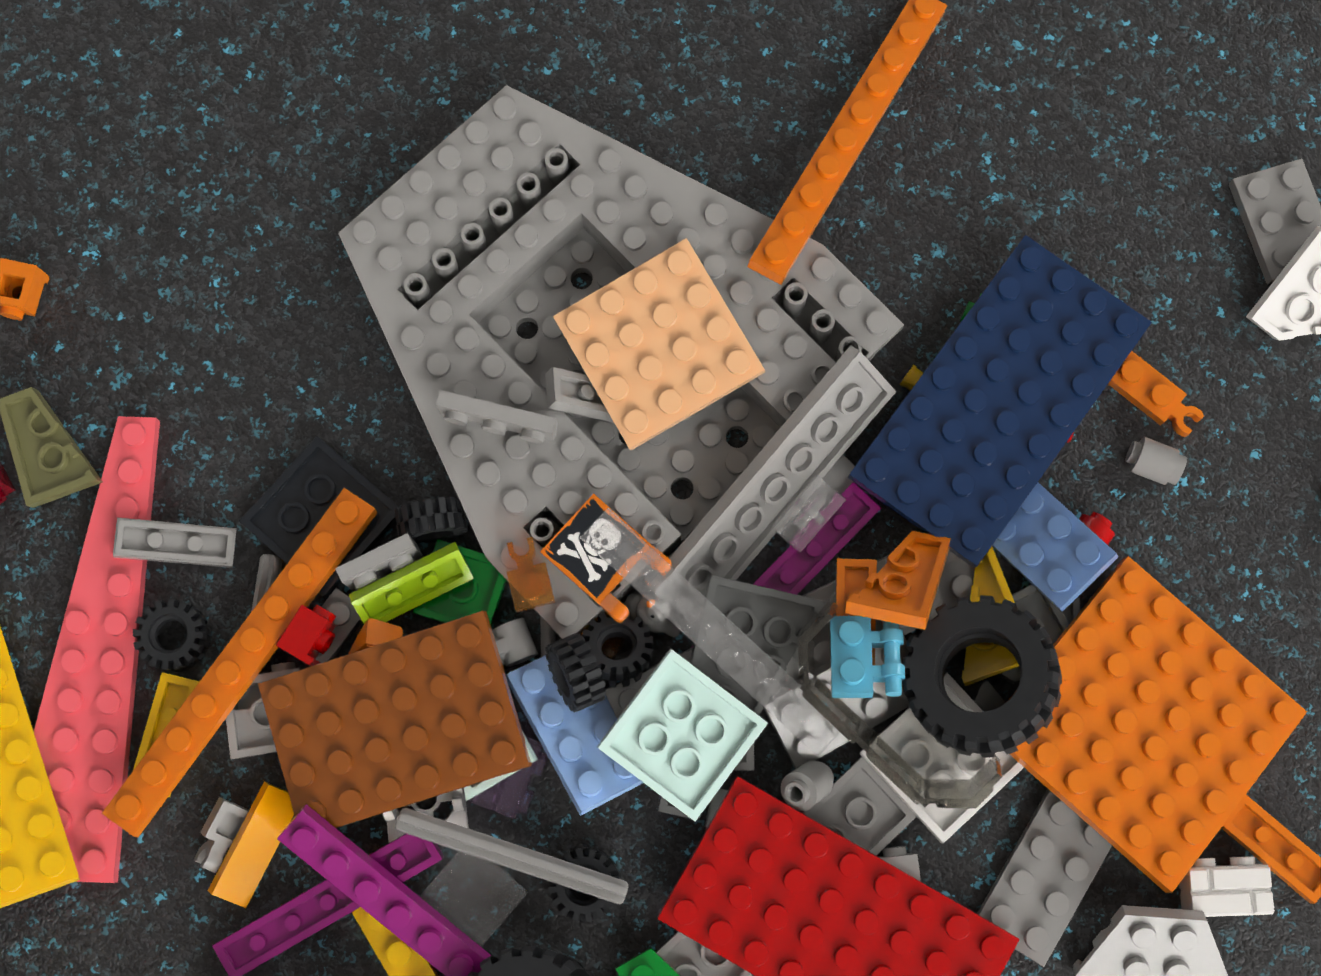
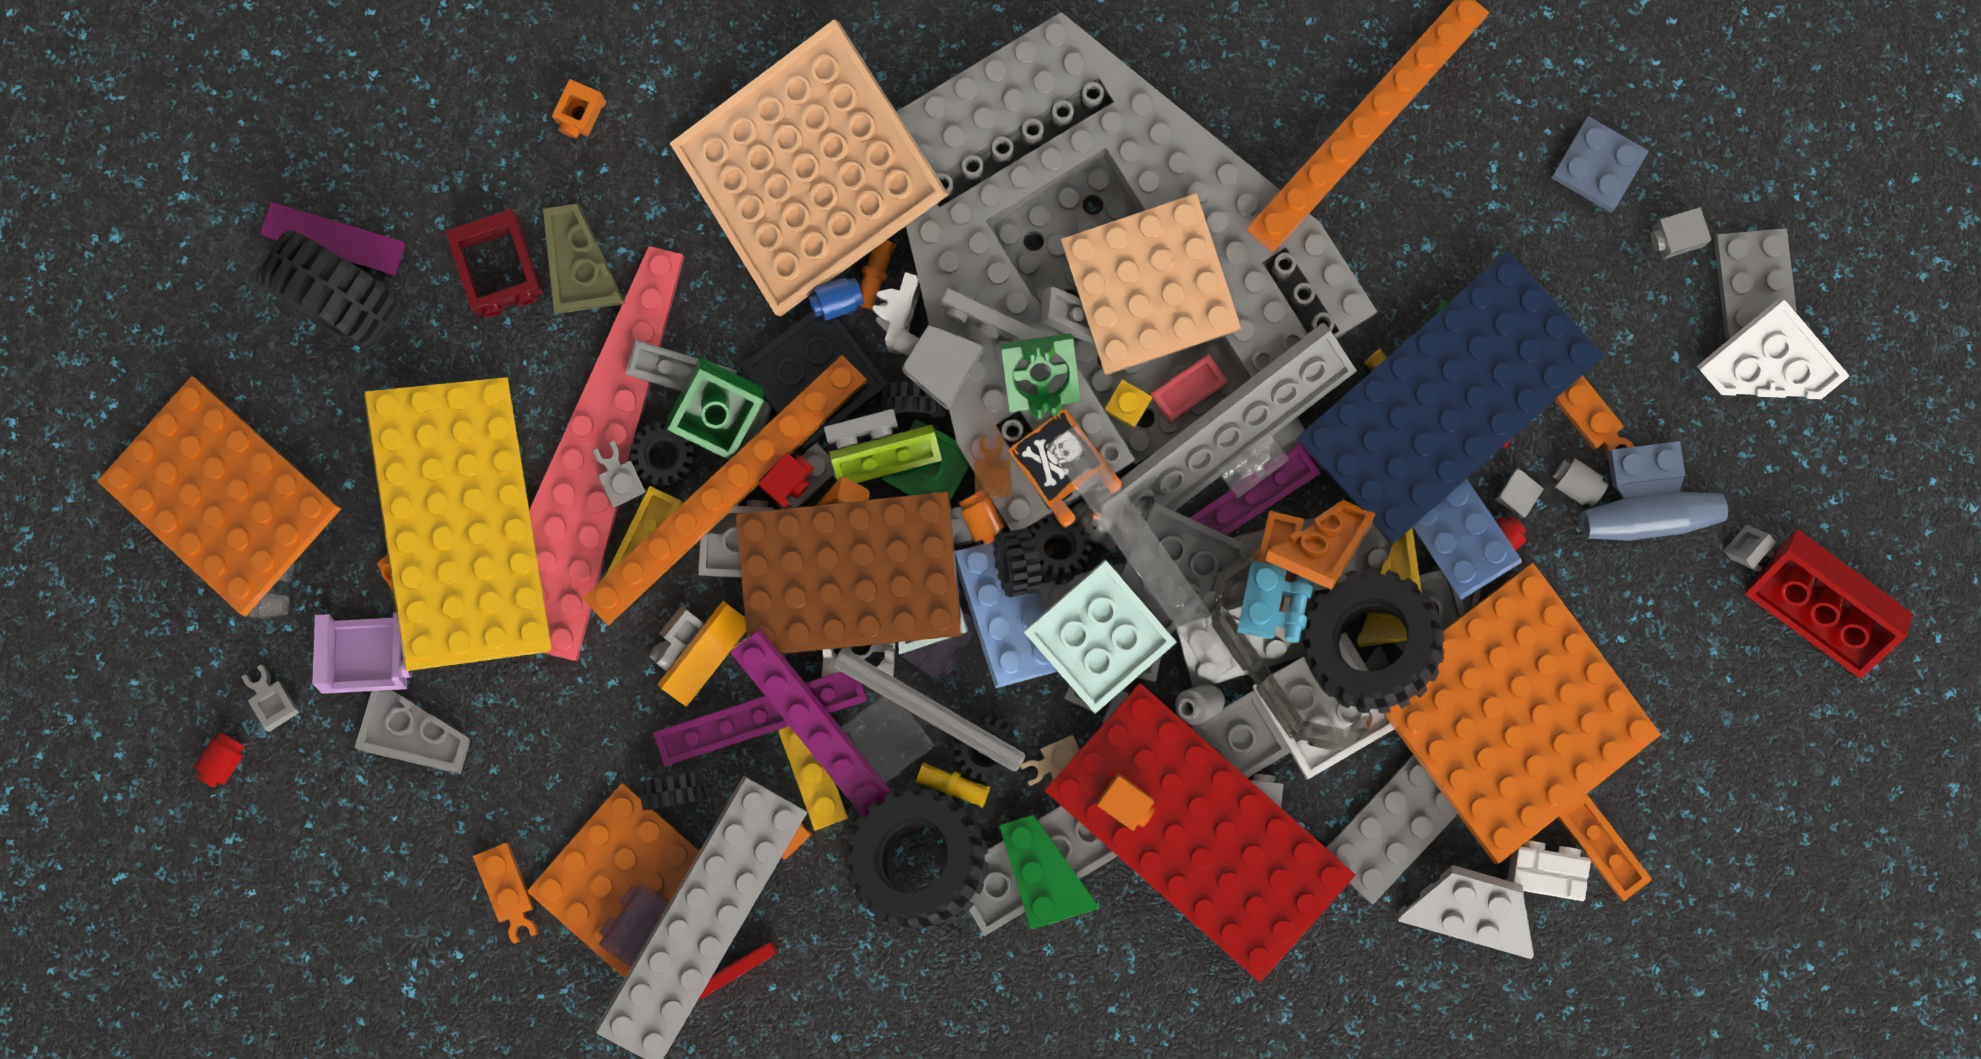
camera: 15 degrees right, 5 degrees up
(127, 673) = (619, 481): none -> light grey plate
(216, 573) = (715, 408): none -> green brick
(271, 299) = (808, 168): none -> light nougat plate
(326, 429) = (836, 298): none -> blue brick
(364, 396) = (875, 273): none -> orange pin
(396, 430) = (898, 309): none -> white piece
(446, 471) = (938, 361): none -> light grey torso
(528, 632) = (981, 518): none -> orange brick
(550, 438) = (1040, 351): none -> piece
(556, 932) = (953, 785): none -> yellow pin
(661, 477) = (1128, 404): none -> yellow plate
(662, 878) = (1055, 758): none -> tan plate
(722, 447) = (1189, 388): none -> coral tile
(751, 914) = (1126, 802): none -> orange brick
(1094, 486) = (1519, 493): none -> light grey slope
(1095, 133) = (1599, 164): none -> sand blue plate
(1196, 185) = (1680, 233): none -> light grey brick
(1235, 466) = (1651, 497): none -> sand blue plate

